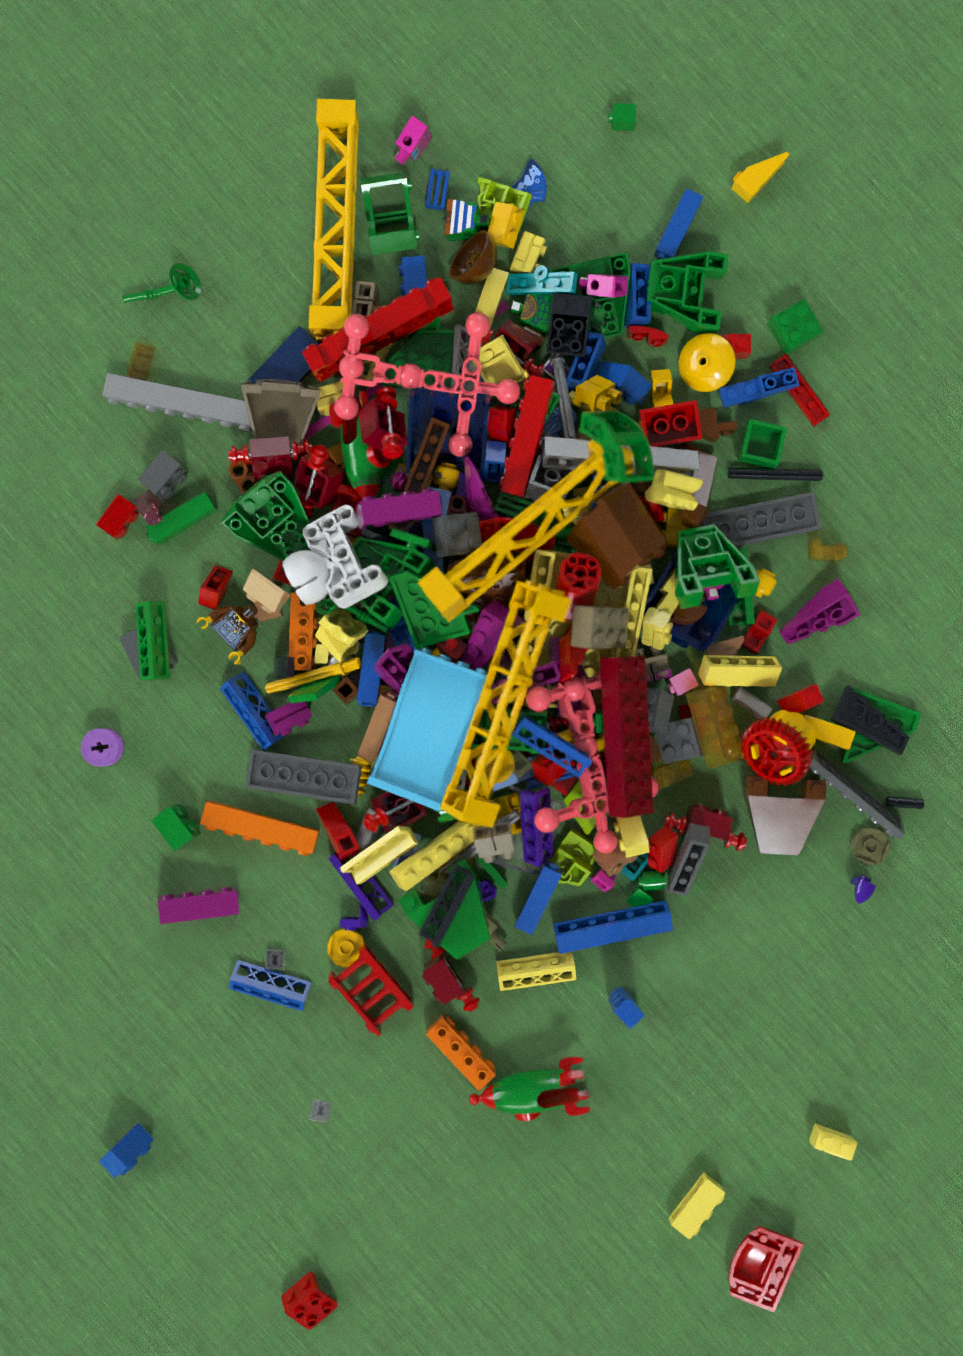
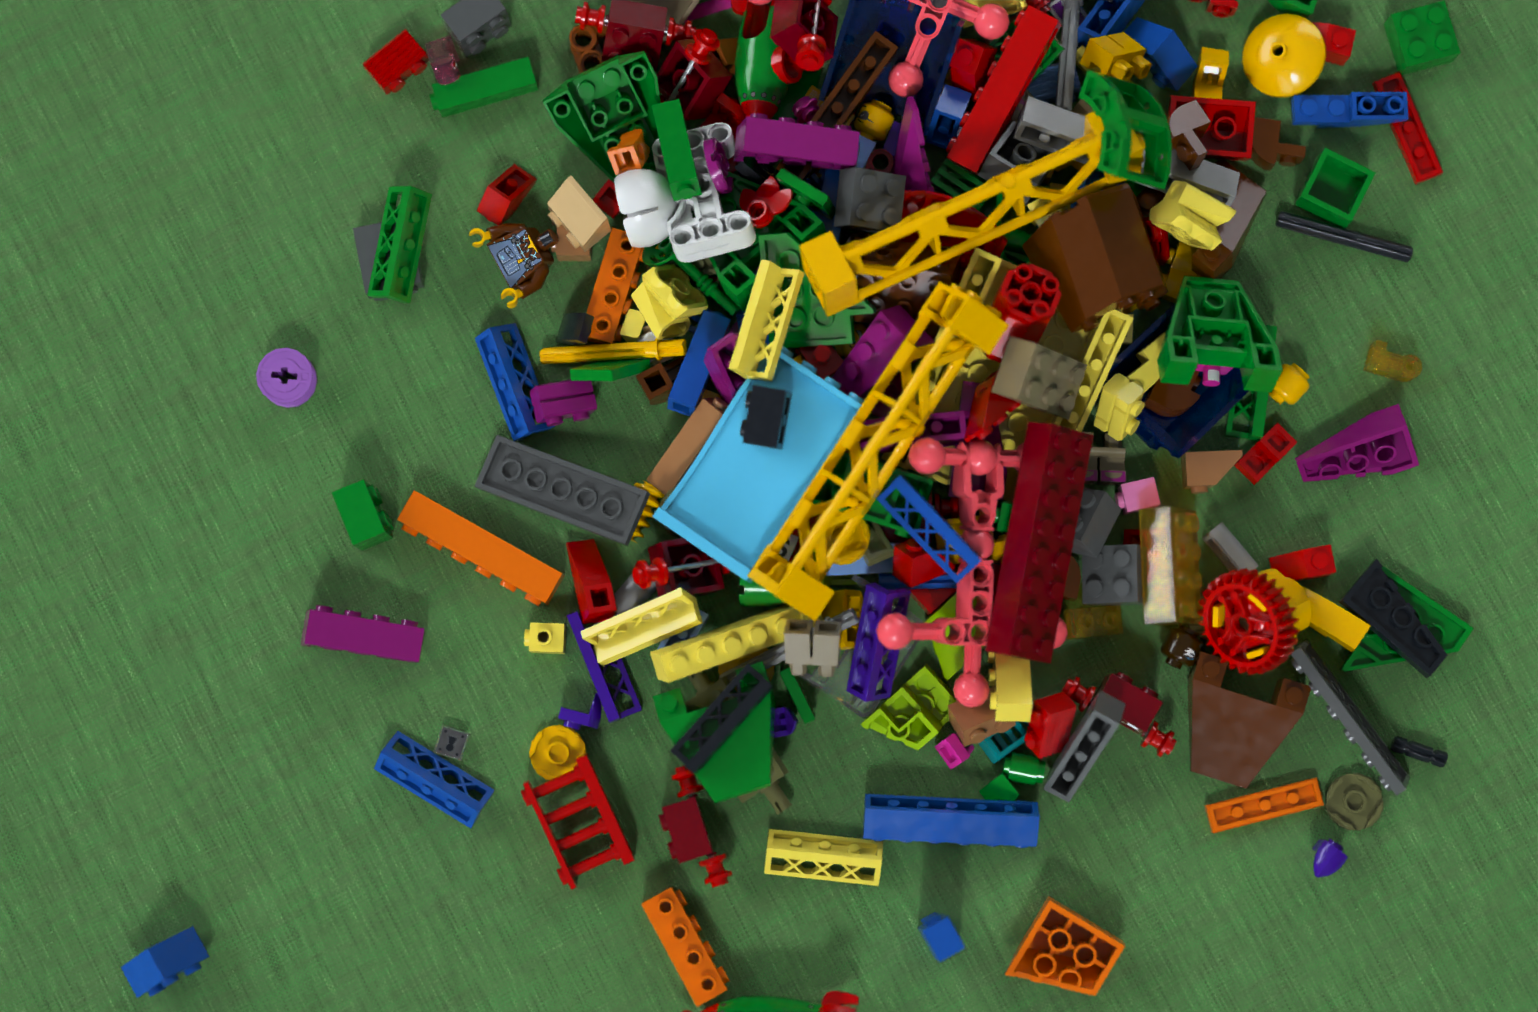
camera: 15 degrees right, 5 degrees down
(289, 541) = (629, 153): none -> orange leg
(318, 875) = (546, 638): none -> light yellow brick
(319, 533) = (676, 150): none -> green brick
(320, 1111) = (458, 981): clear tile -> none
(349, 536) = (718, 165): none -> magenta tile
(388, 551) = (767, 200): none -> red plate
(404, 635) = (760, 321): none -> light yellow fence
(425, 700) = (766, 417): none -> black brick
(538, 897) = (854, 748): blue brick -> none
(655, 429) = (1186, 127): none -> brick
(708, 992) = (1065, 950): none -> orange wedge
(735, 775) = (1181, 647): none -> dark brown head
(739, 670) = (1224, 498): light yellow brick -> none
(767, 519) = (1318, 297): dark grey plate -> none
(812, 863) = (1264, 805): none -> orange tile

